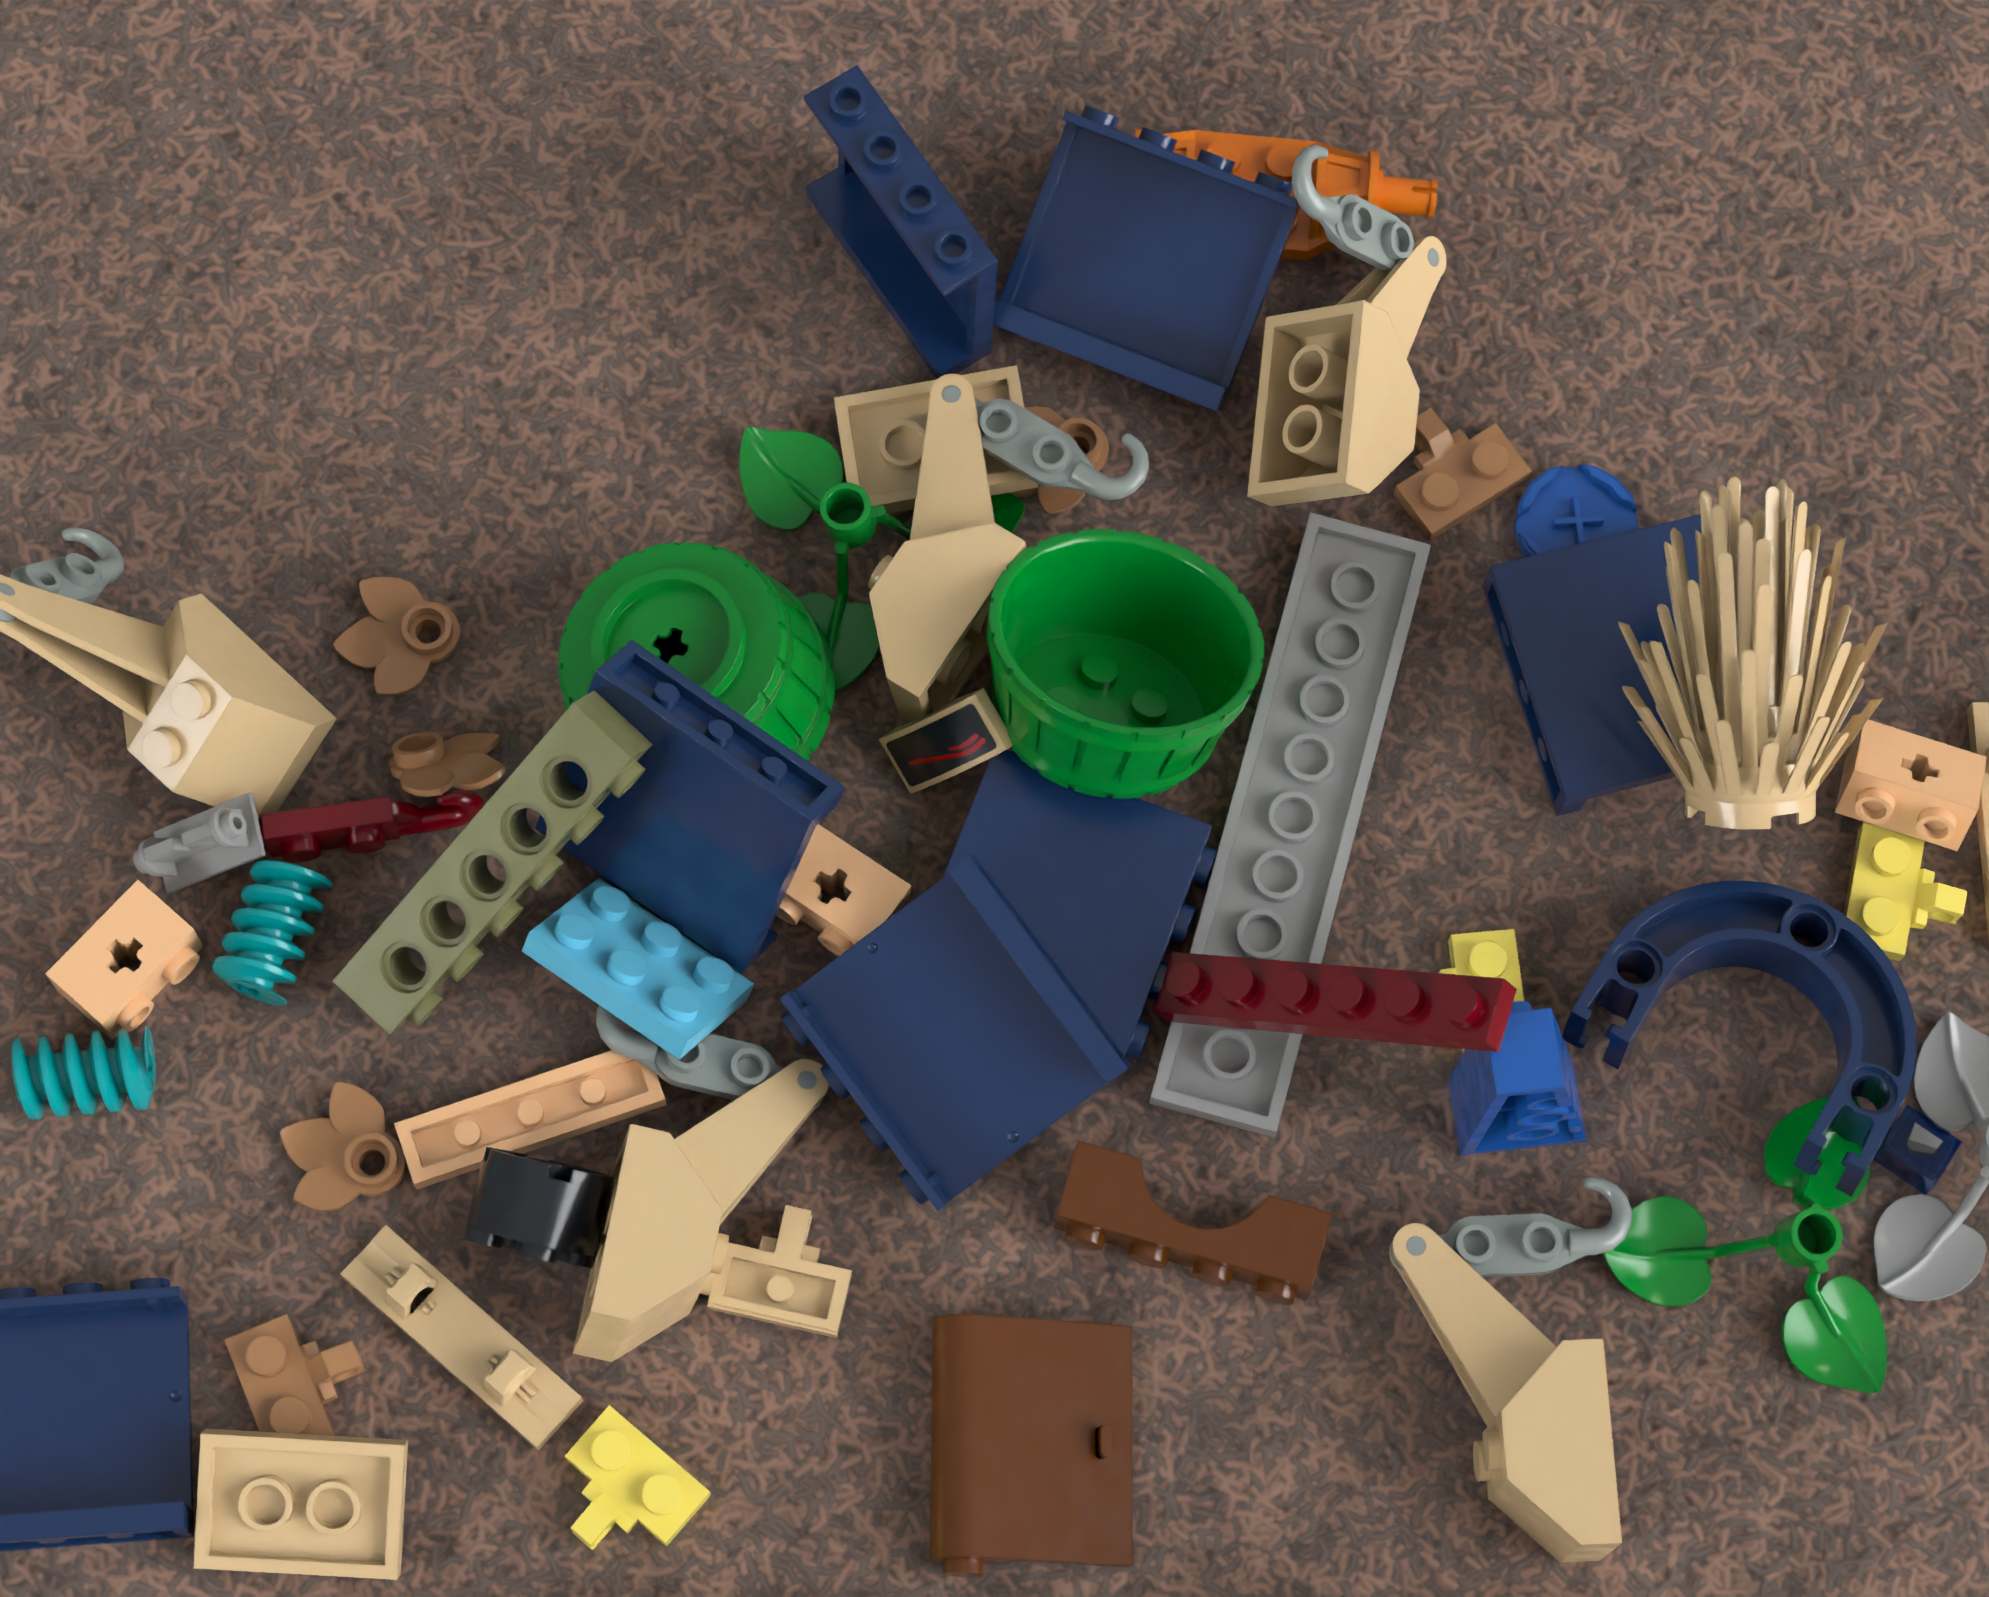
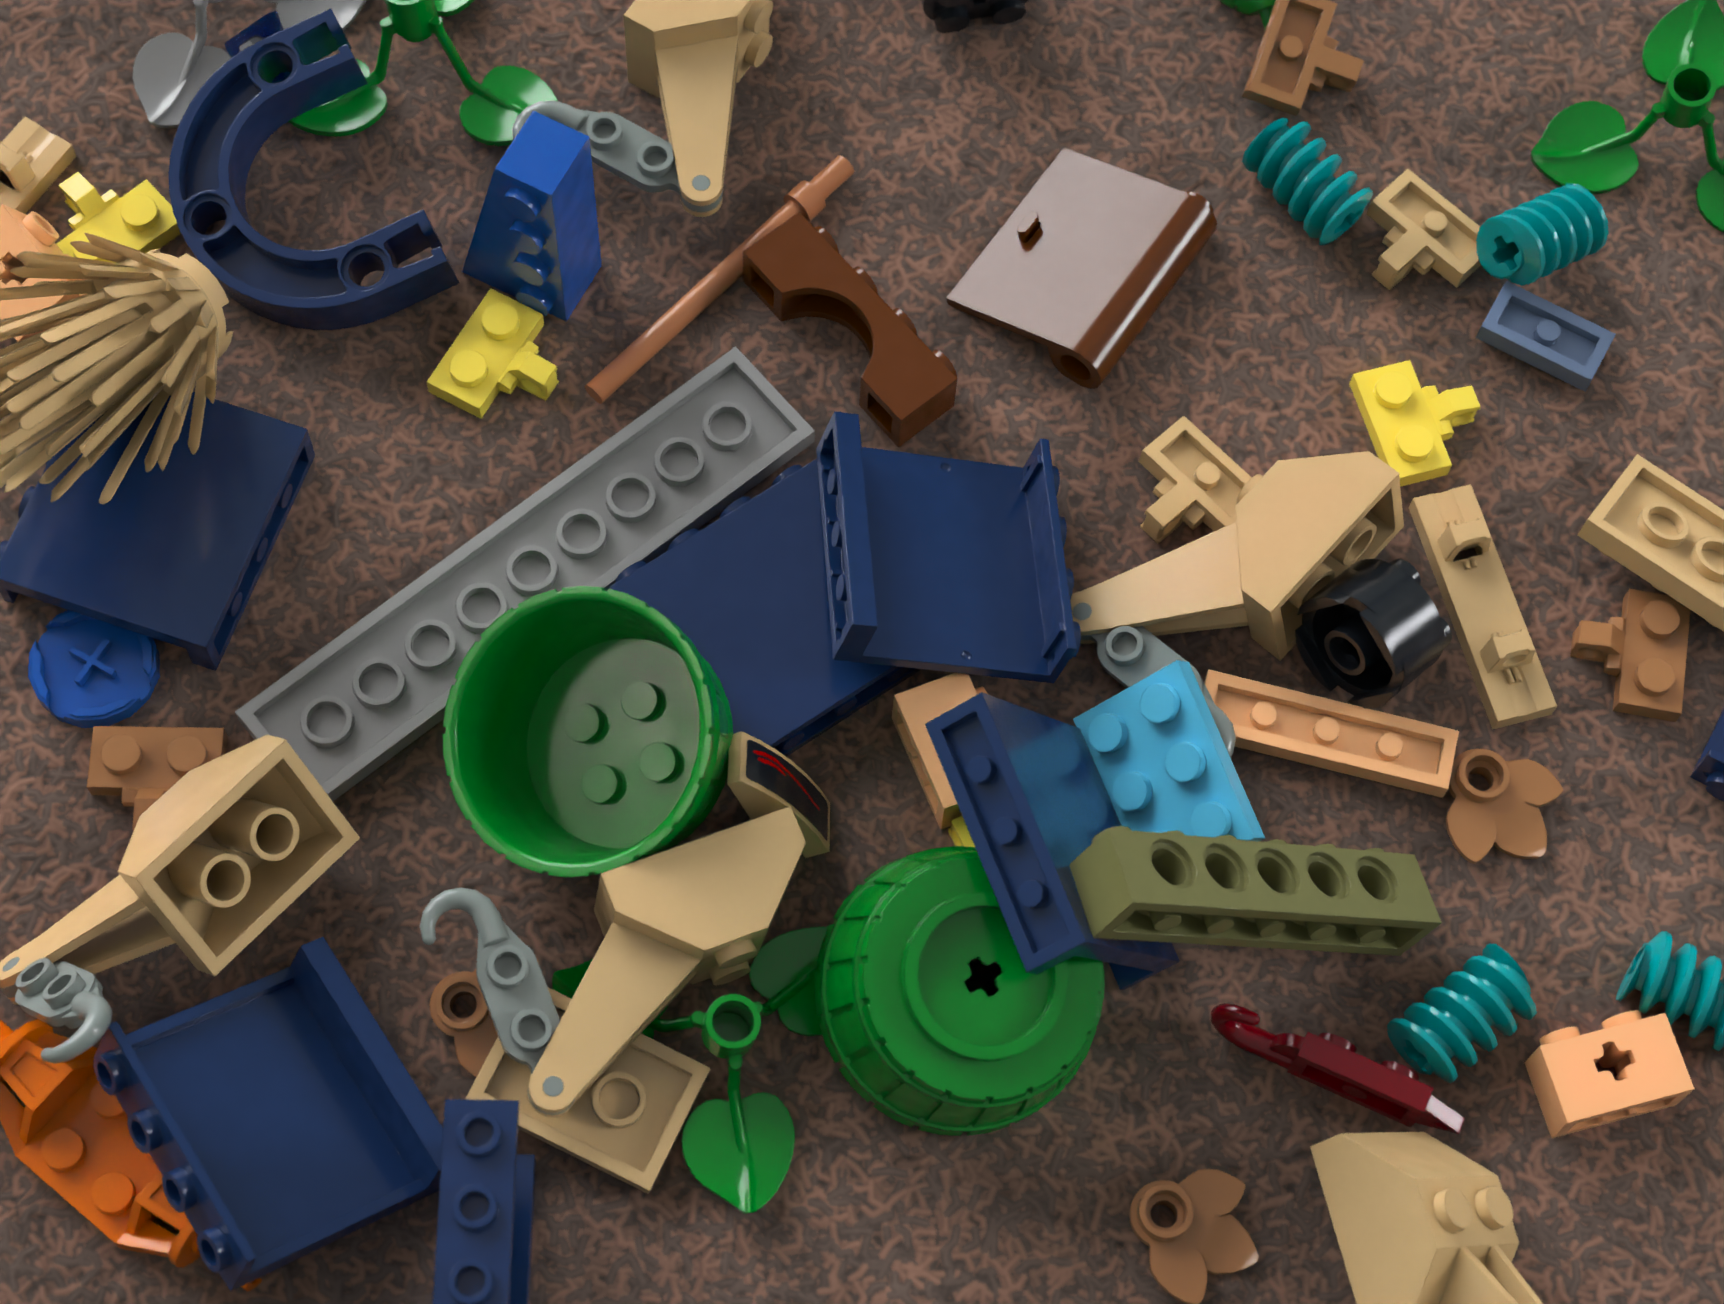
camera: 145 degrees left, 5 degrees down
(203, 844) = (1486, 1130): light grey hinge -> none
(433, 766) = (1221, 1057): medium nougat plate -> none
(1326, 1330) = (804, 198): none -> nougat bar
(1337, 1001) = (640, 331): dark red plate -> none

